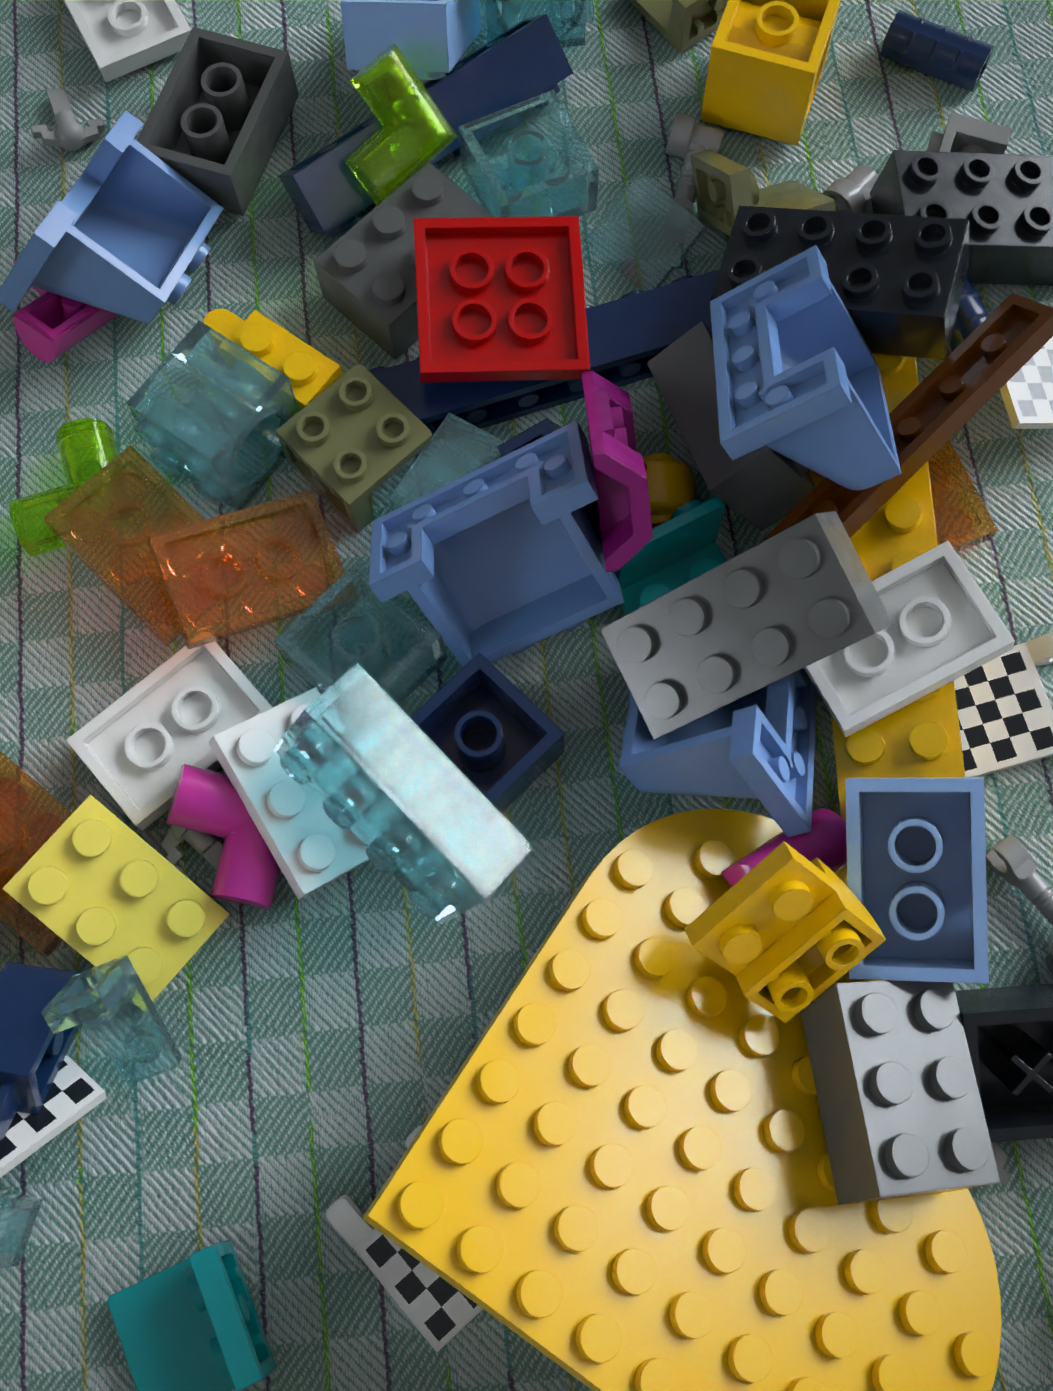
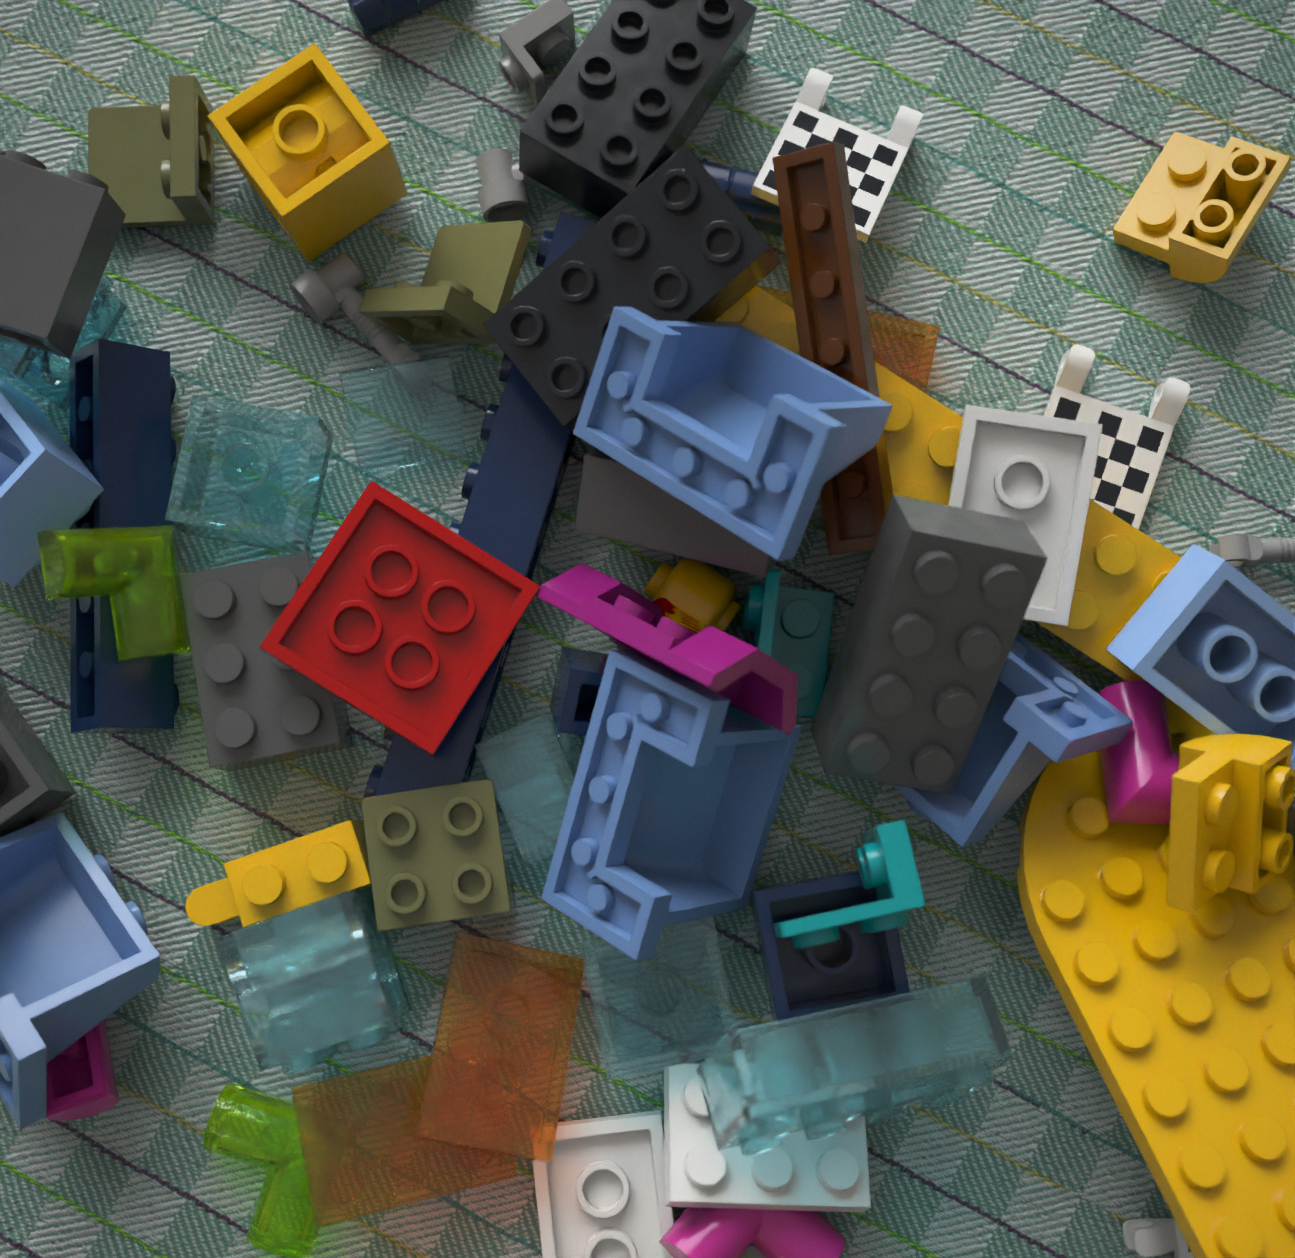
camera: 60 degrees left, 10 degrees up
(529, 725) = (882, 863): none -> teal bracket

